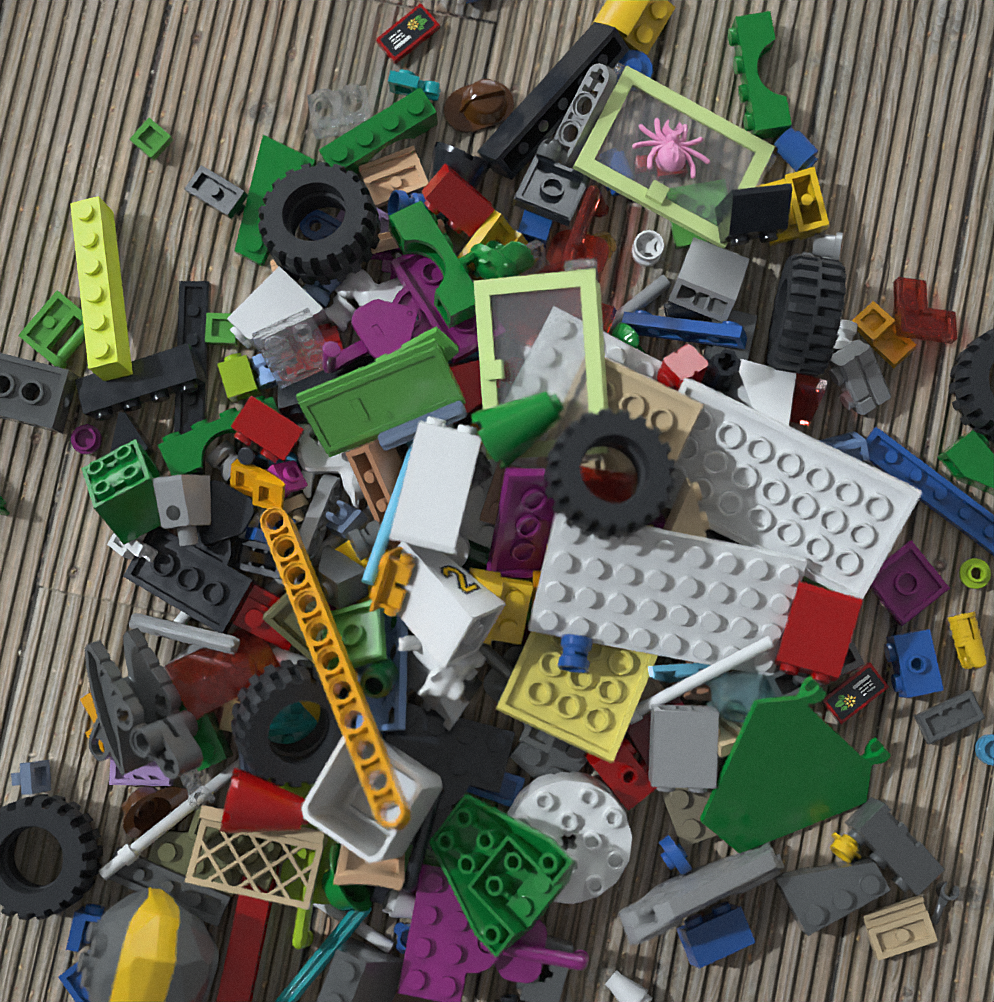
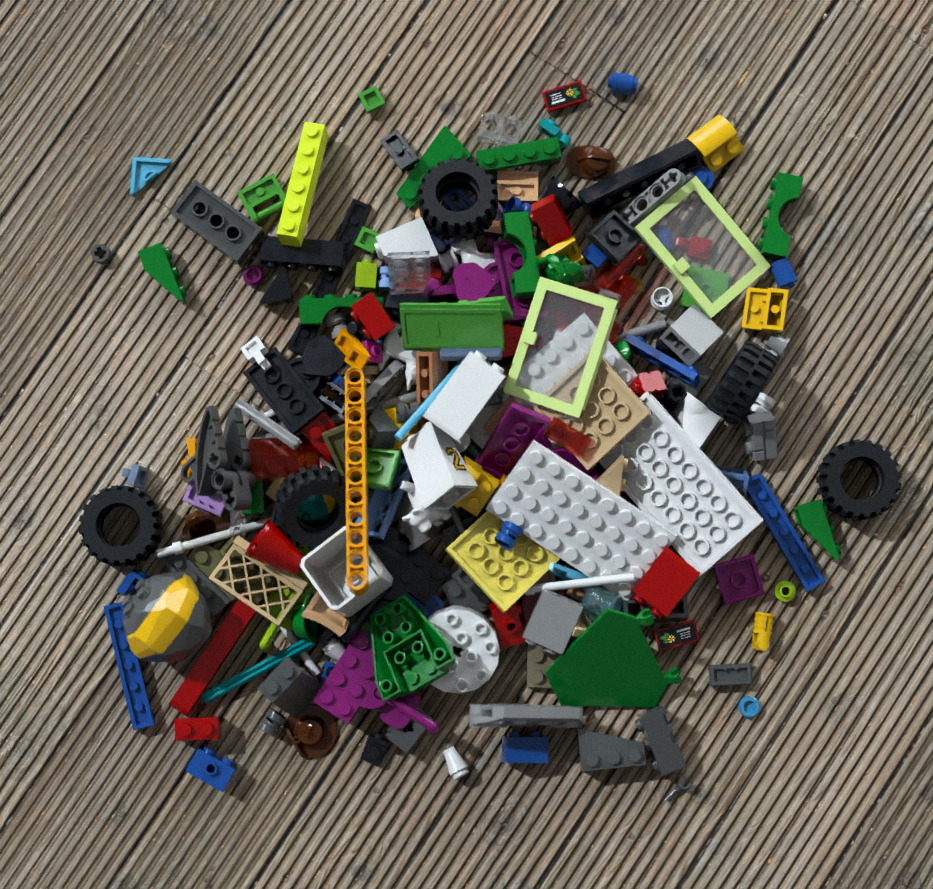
camera: 15 degrees right, 0 degrees up
(124, 491) = (269, 321): green brick -> none
(184, 504) = (301, 343): light grey torso -> none
(345, 520) = (397, 394): sand blue tile -> none
(379, 678) = (380, 500): dark green brick -> none
(394, 568) = (419, 436): light orange hinge -> none
(517, 425) = (530, 378): green cone -> none
(550, 149) = (624, 210): dark grey hinge -> none
(638, 445) = (601, 425): black tyre -> none
(671, 149) = (701, 240): bright pink animal -> none
(674, 856) = (519, 689): blue wheel -> none
(754, 214) = (736, 305): black slope -> none
(806, 398) = (720, 435): clear red plate -> none
(845, 847) = (629, 728): yellow plate -> none
(880, 333) = (790, 415): light orange slope -> none
(899, 927) = (642, 792): tan plate -> none
(913, 663) = (721, 631): blue brick -> none
(914, 317) = (815, 414): clear red plate -> none

